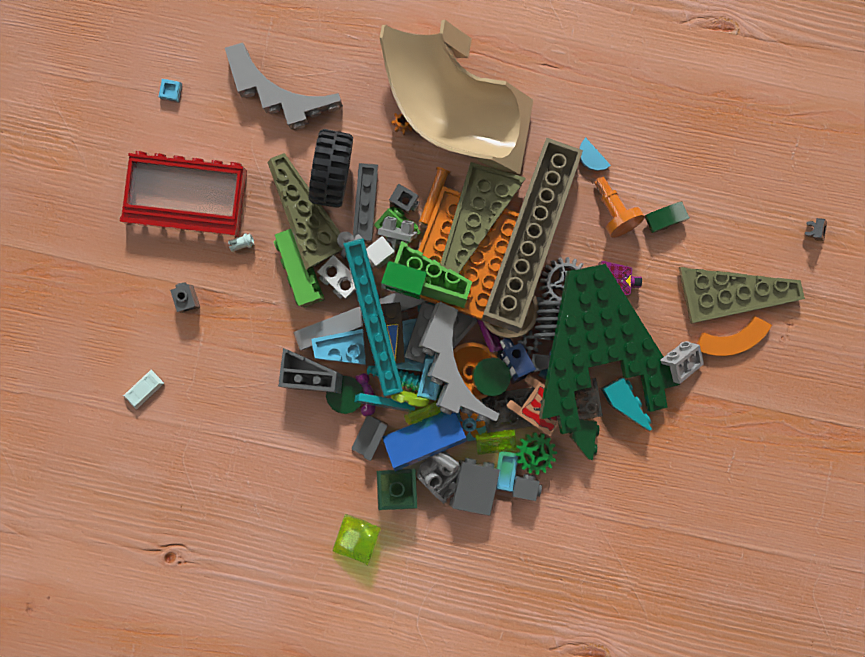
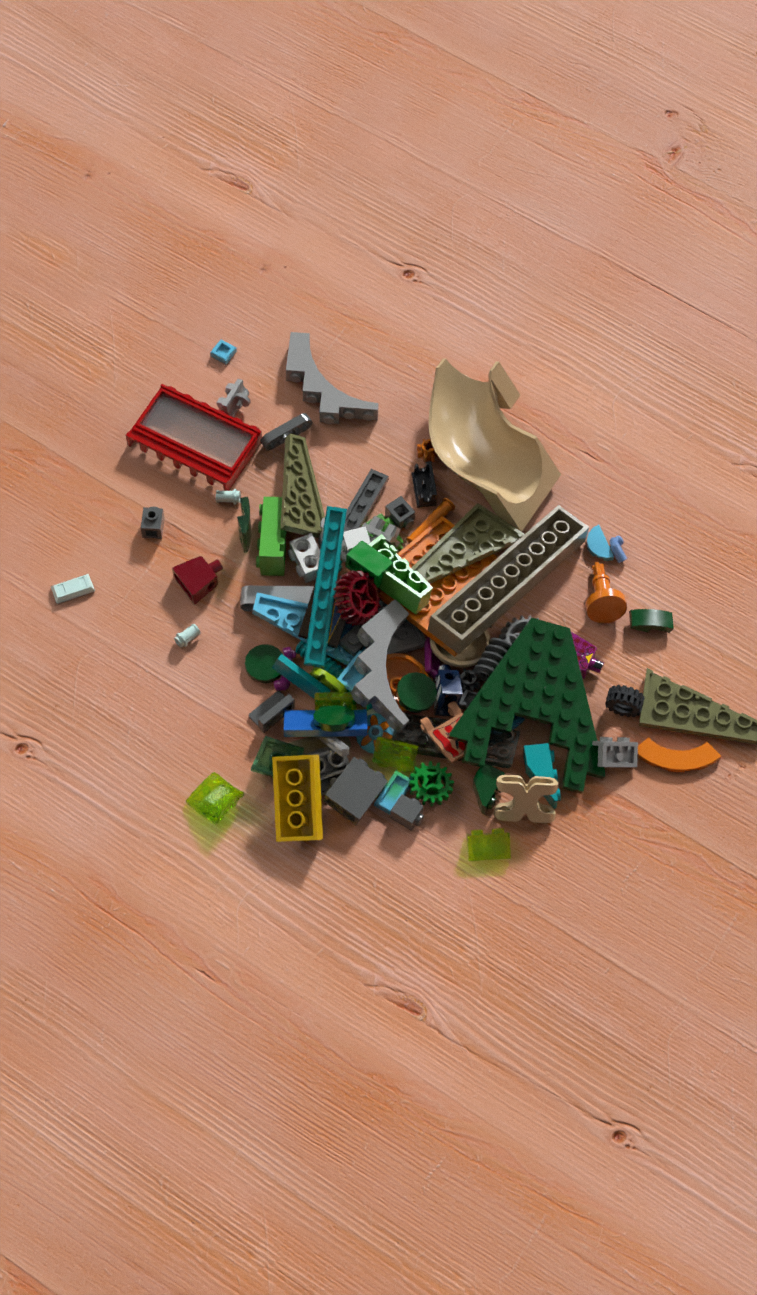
camera: 25 degrees right, 25 degrees down
(204, 138) = (236, 398): none -> light grey hips
(249, 337) = (197, 577): none -> dark red torso
(265, 153) = (294, 426): none -> dark grey beam
(265, 396) = (187, 635): none -> light aqua pin
(272, 273) = (244, 524): none -> clear green slope
(305, 374) = (238, 627): dark grey wedge -> none
(330, 168) = (342, 455): black tyre -> none
(406, 318) = (356, 597): none -> dark red gear
(413, 160) = (424, 485): none -> black hinge
(430, 521) = (297, 798): none -> yellow slope
(431, 436) = (334, 718): none -> dark green tile
(605, 488) = (488, 845): none -> clear neon green bracket
(607, 152) = (615, 544): none -> medium blue arm
(624, 439) = (525, 798): none -> tan piece
(674, 309) = (624, 701): none -> black tyre

